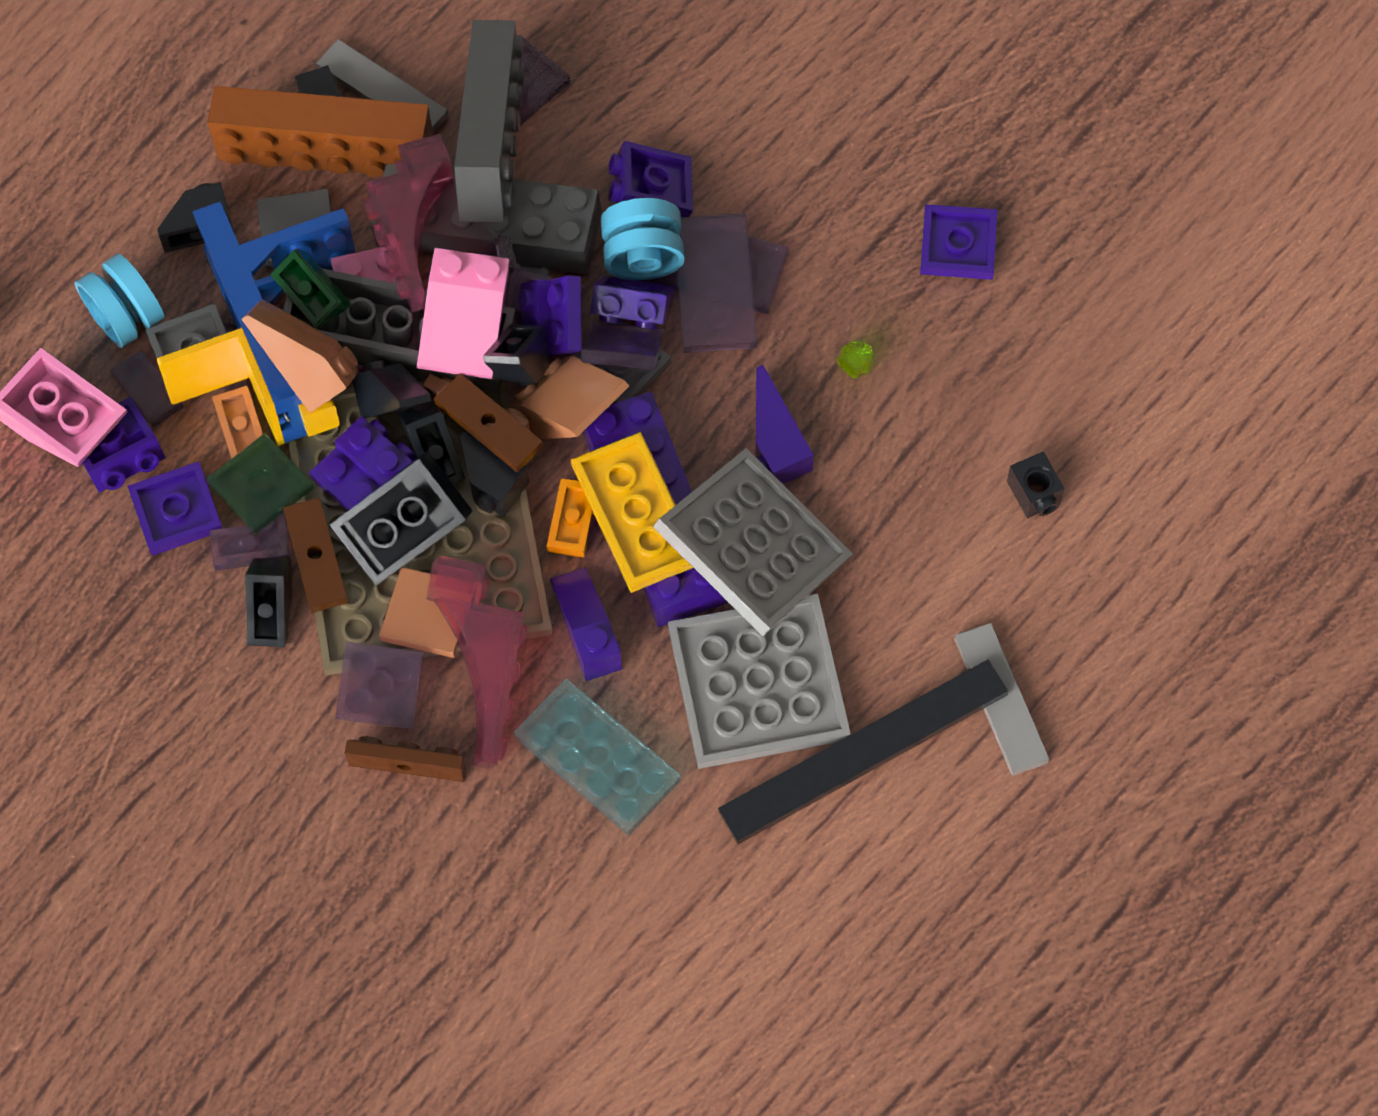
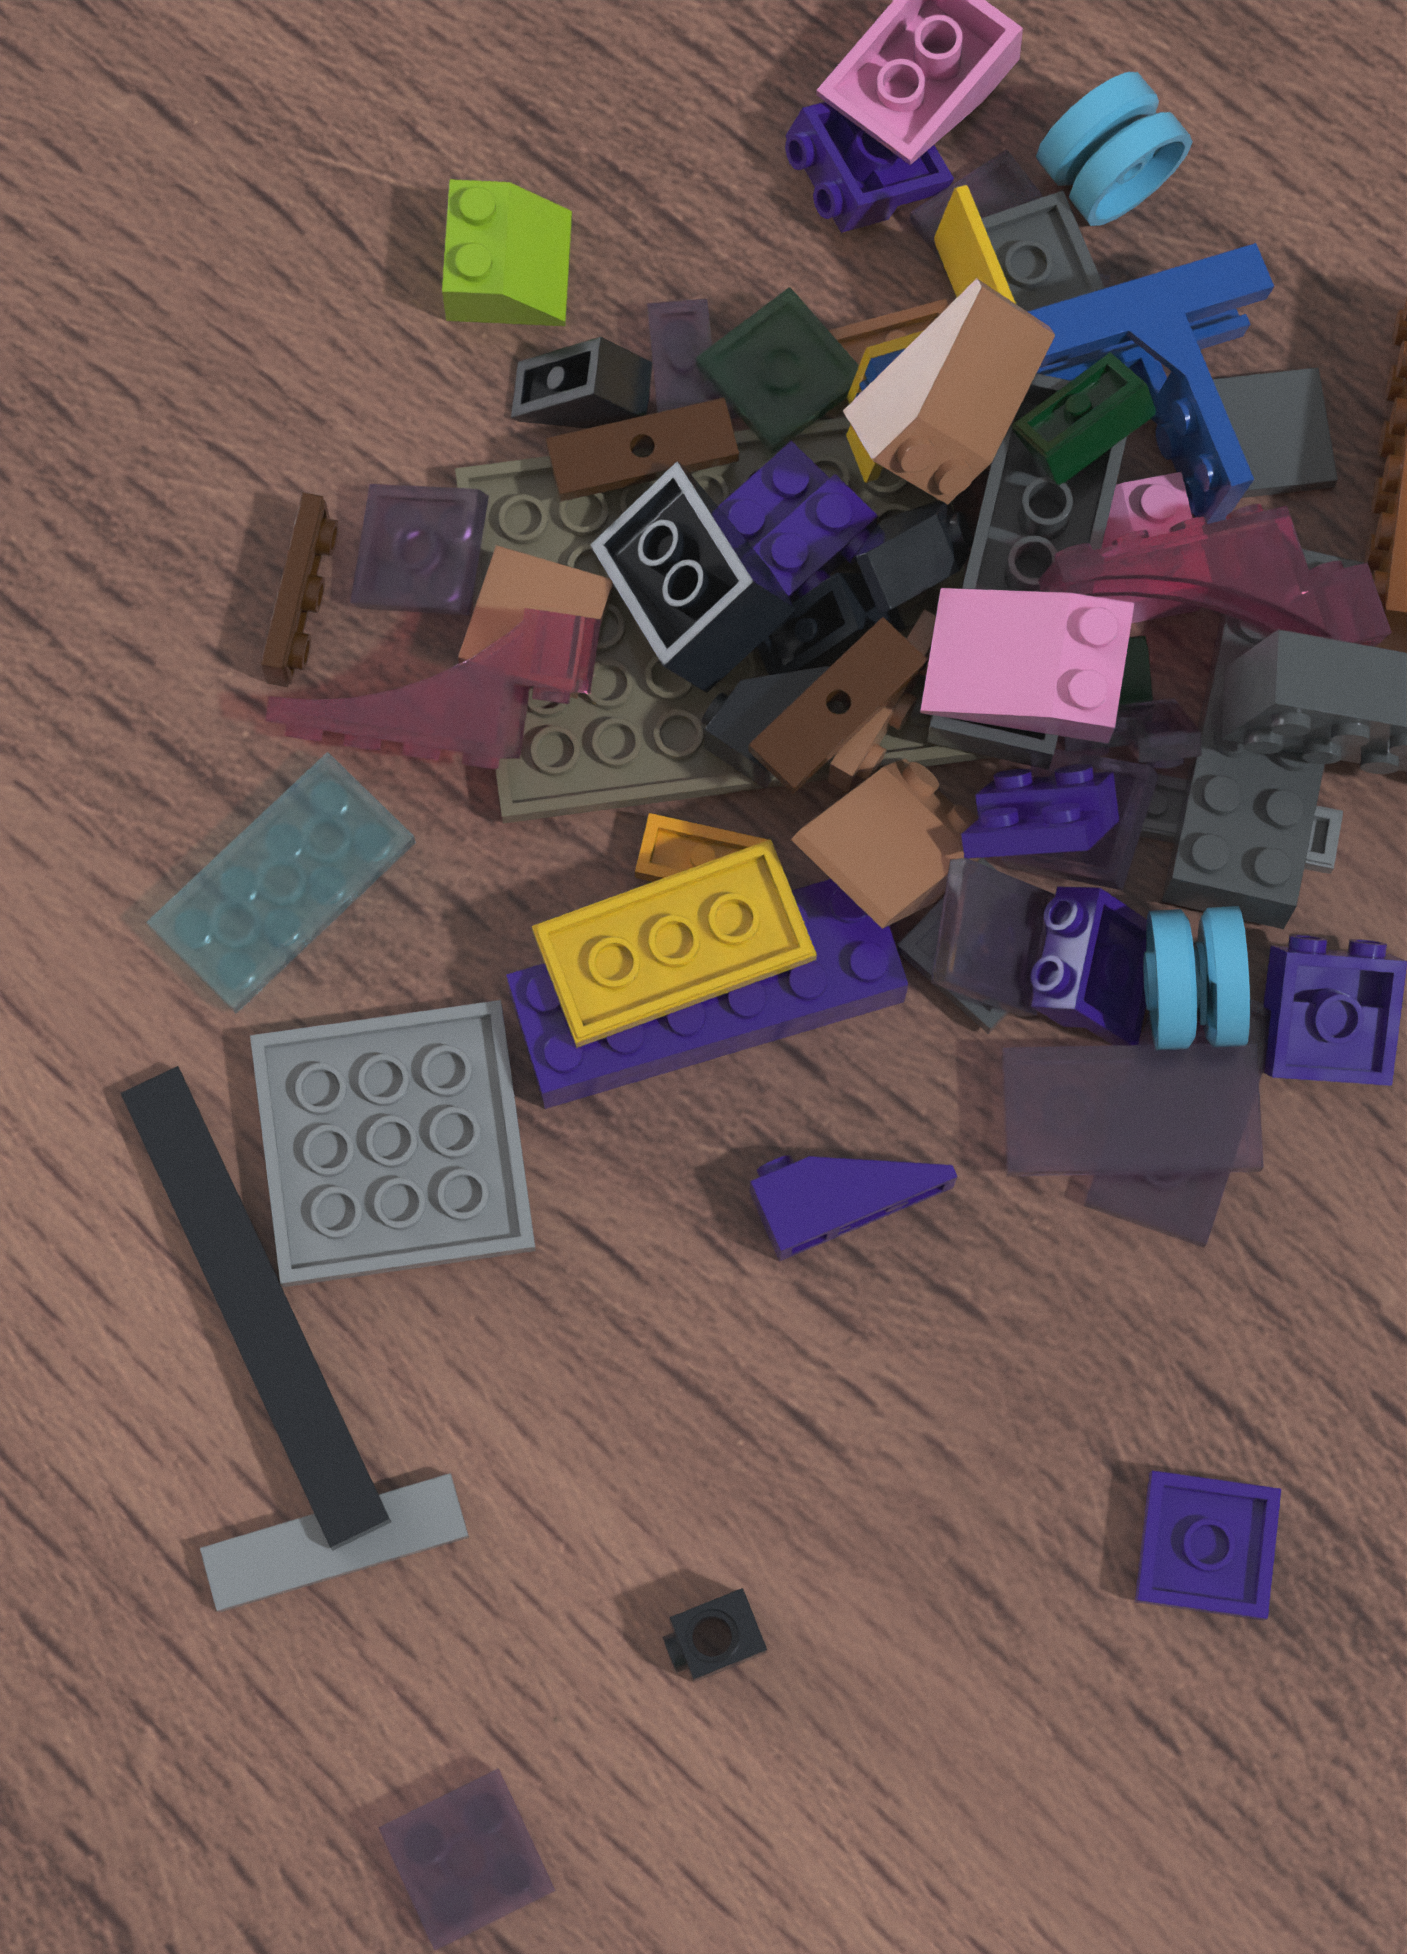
camera: 90 degrees right, 10 degrees up
(175, 508) = (753, 248): dark purple plate -> none
(177, 655) = (505, 255): none -> lime slope
(179, 227) = (1304, 285): black slope -> none
(519, 354) = (956, 752): black slope -> none
(587, 624) = (515, 872): dark purple slope -> none
(753, 541) = (612, 1135): light grey plate -> none
(856, 358) = (980, 1346): clear neon green plate -> none
(1176, 611) = (467, 1859): none -> clear purple plate

